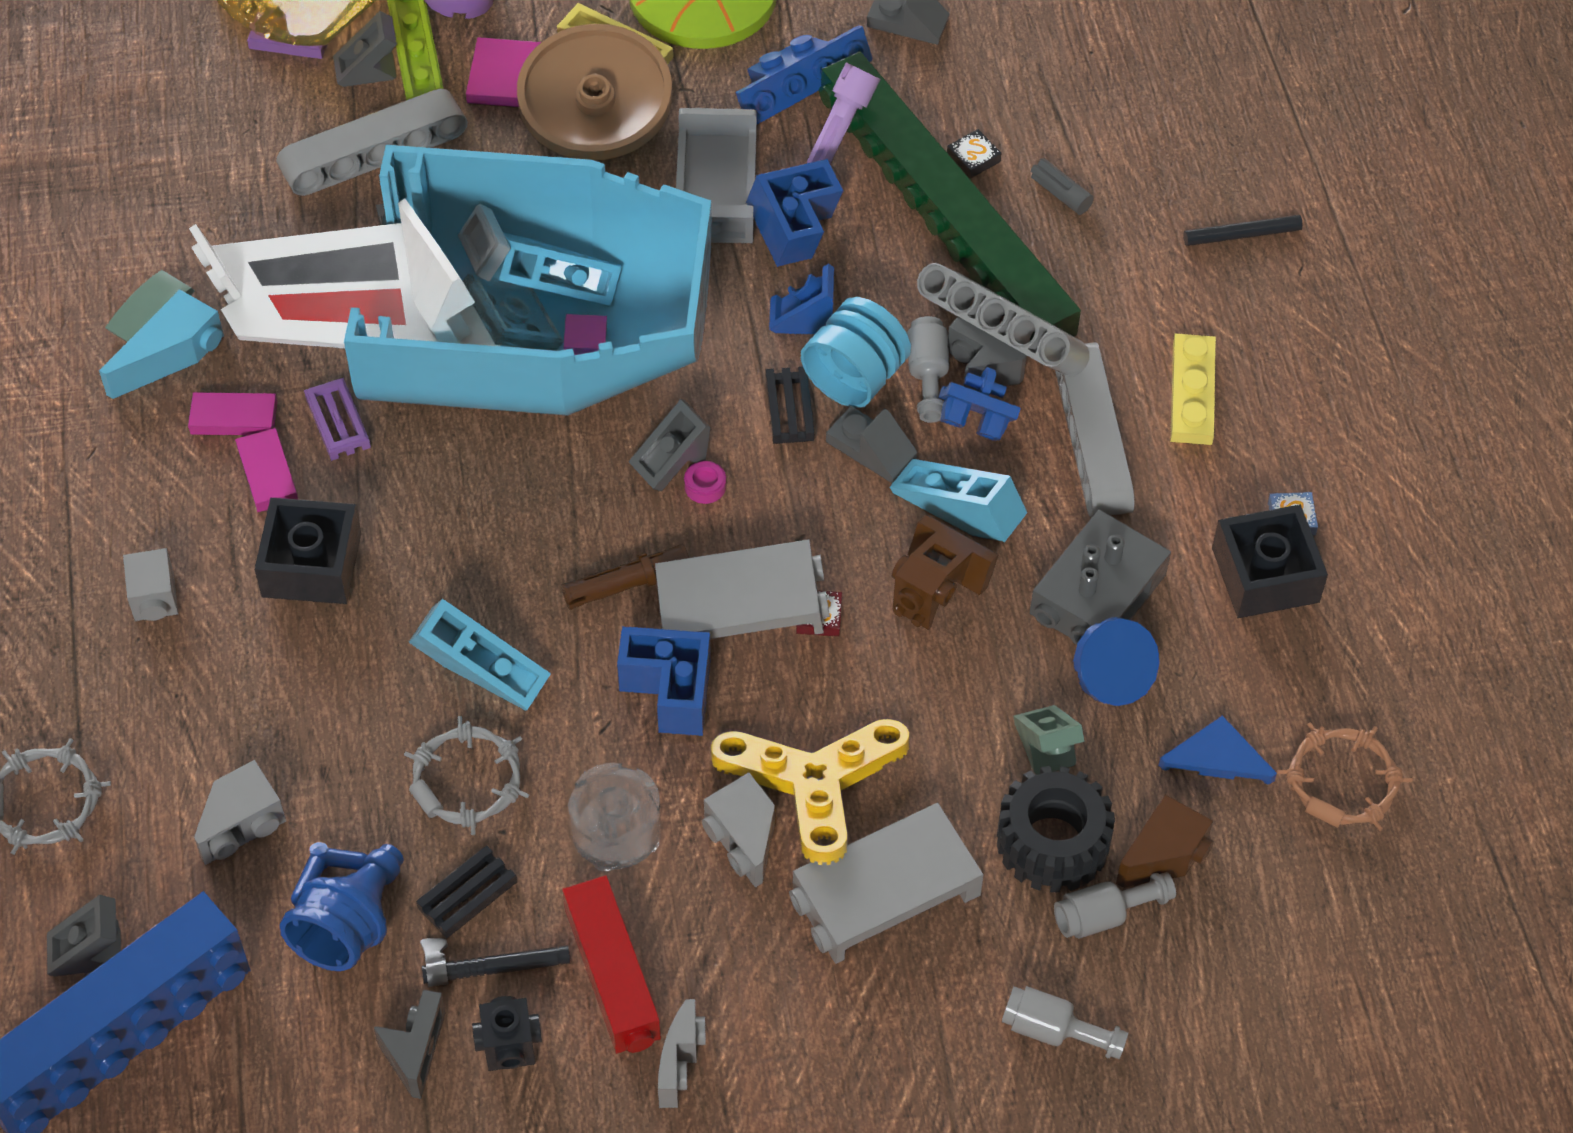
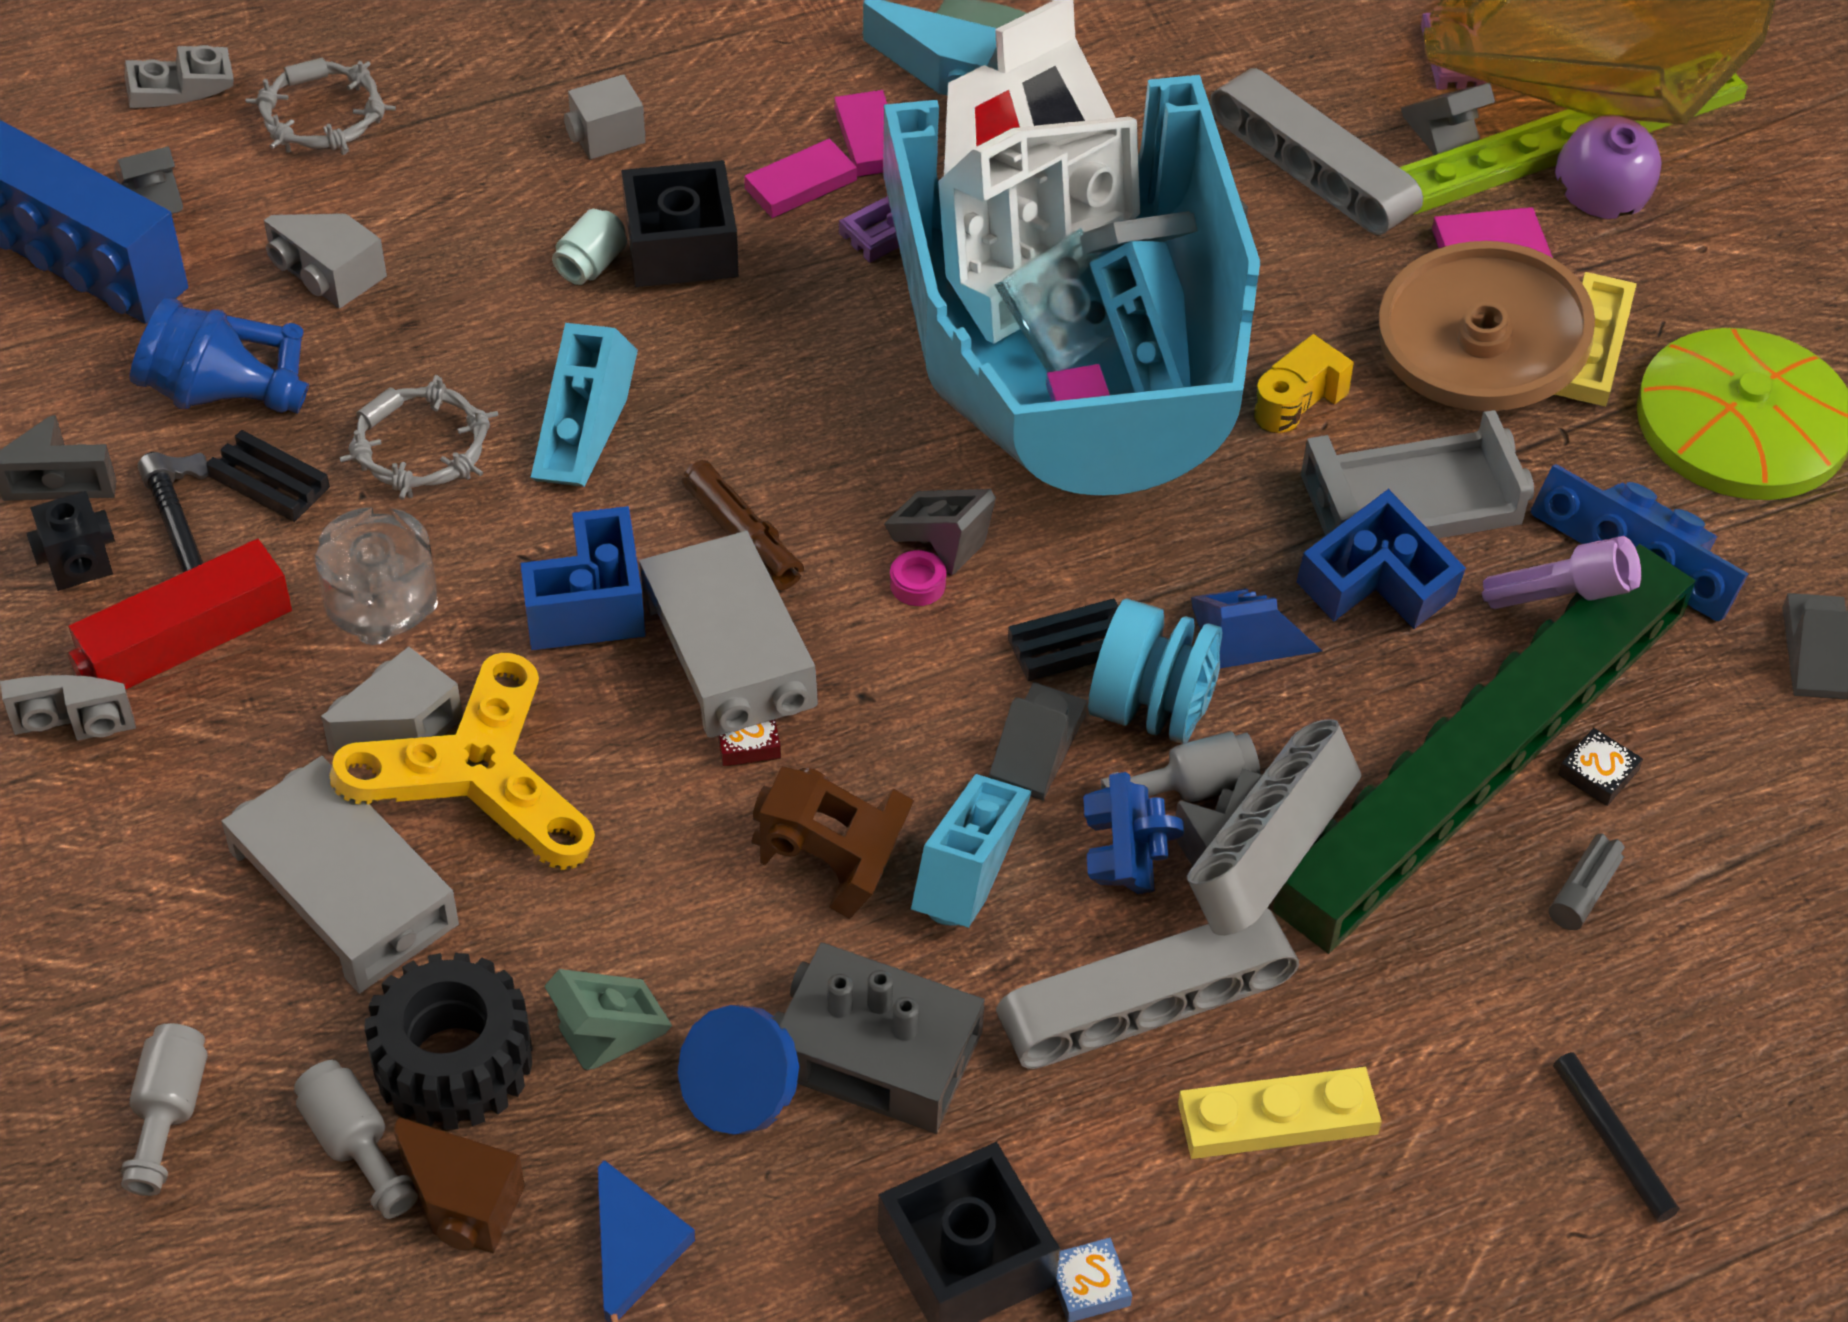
camera: 75 degrees right, 5 degrees down
(297, 623) = (589, 246): none -> light aqua brick

